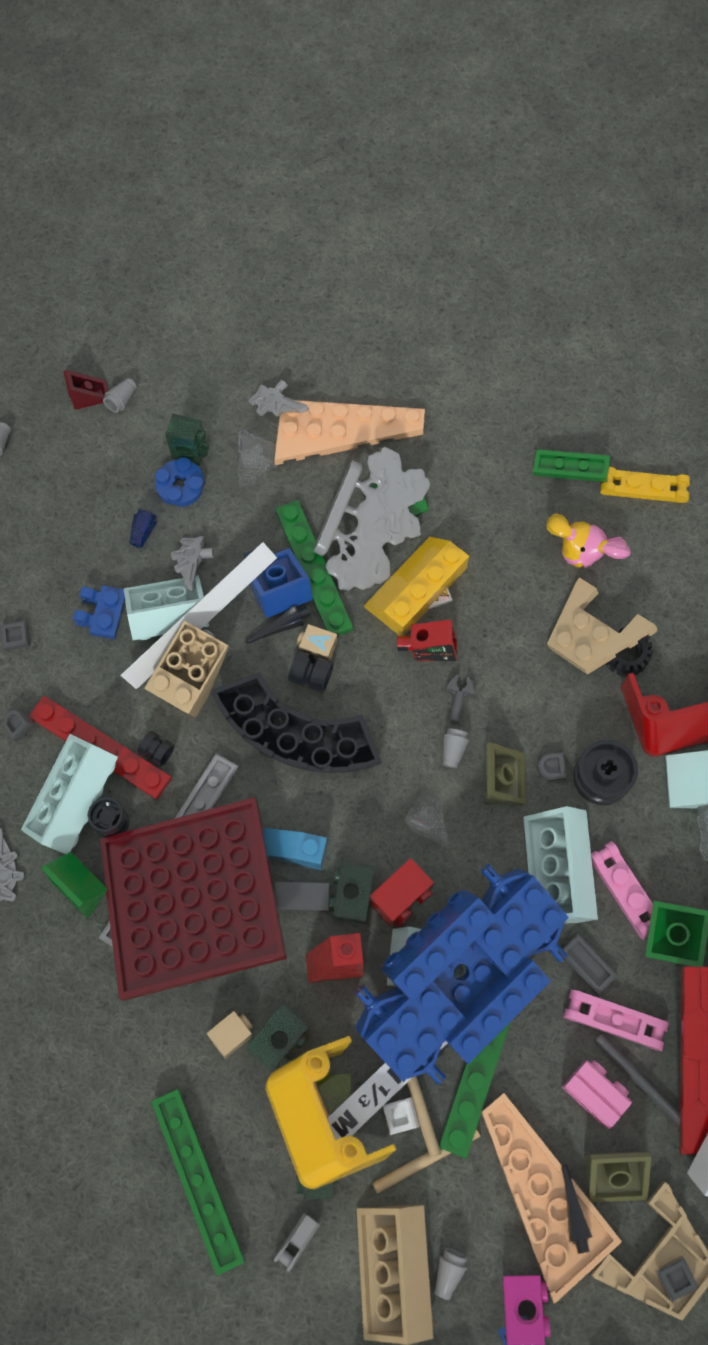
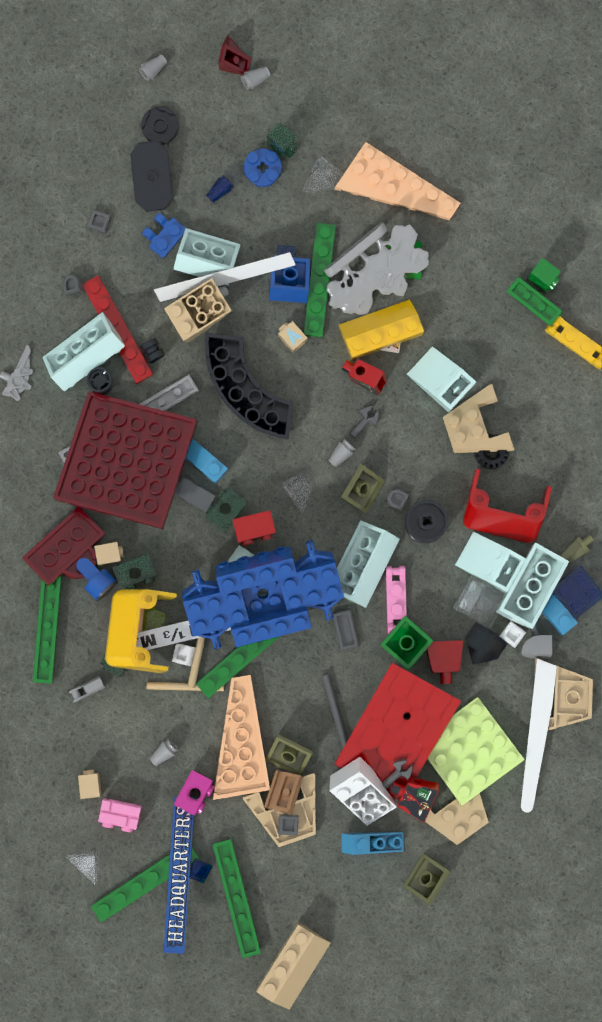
camera: 25 degrees right, 15 degrees up
(36, 504) = (165, 125): none -> black tile
(52, 552) = (151, 176): none -> black shield
(75, 883) = (60, 412): green slope -> none
(180, 1061) = (70, 553): none -> dark red plate
(189, 558) = (240, 228): light grey piece -> none
(273, 401) = (358, 141): light grey piece -> none
(289, 620) = (282, 308): black piece -> none
(311, 671) = (278, 353): black wheel -> none
(335, 959) = (193, 545): red slope -> none
(394, 1274) = (133, 735): tan slope -> none
(521, 601) = (441, 379): none -> light aqua slope
(566, 430) = (544, 276): none -> green brick
(577, 1224) = (249, 767): black piece -> none
(588, 536) = (512, 360): hair -> none
(597, 1094) = (304, 705): bright pink brick -> none
(616, 1020) = (342, 671): bright pink plate -> none
(643, 1234) = (283, 792): none -> medium nougat plate

